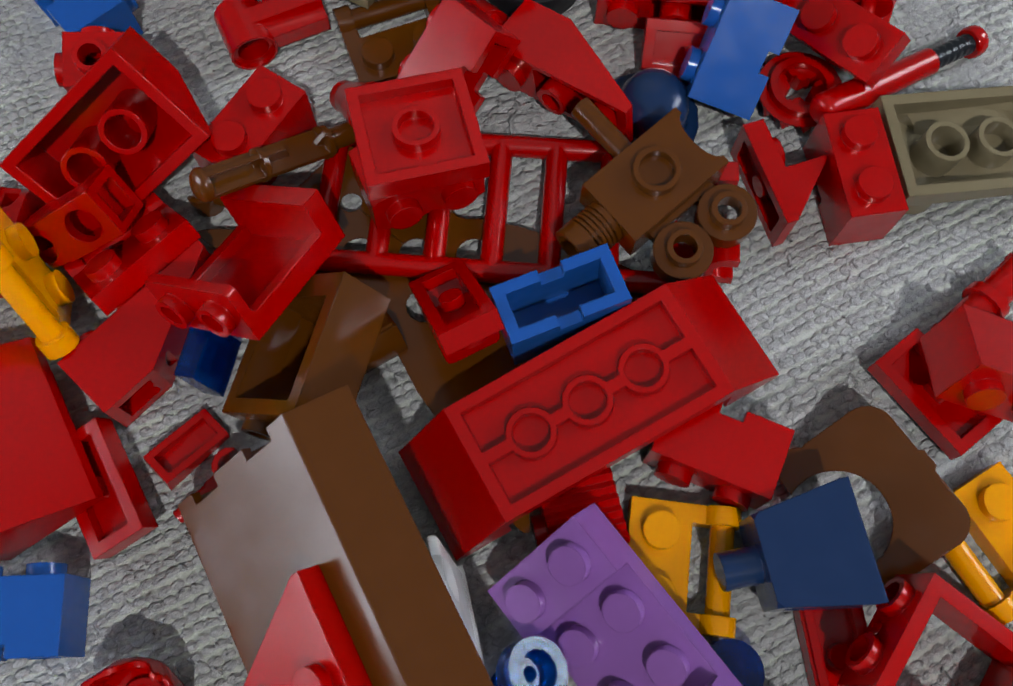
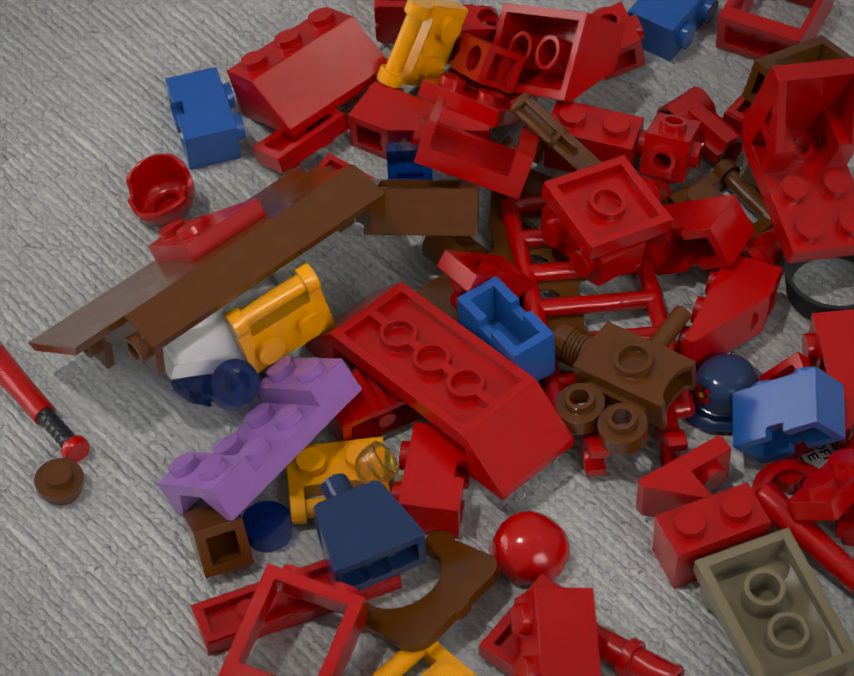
camera: 80 degrees right, 20 degrees down
(304, 54) = (670, 148): none -> red brick
(483, 610) = (280, 319): none -> light orange plate
(707, 511) = (376, 463): none -> clear yellow hinge
(822, 370) = (529, 547): none -> red hair

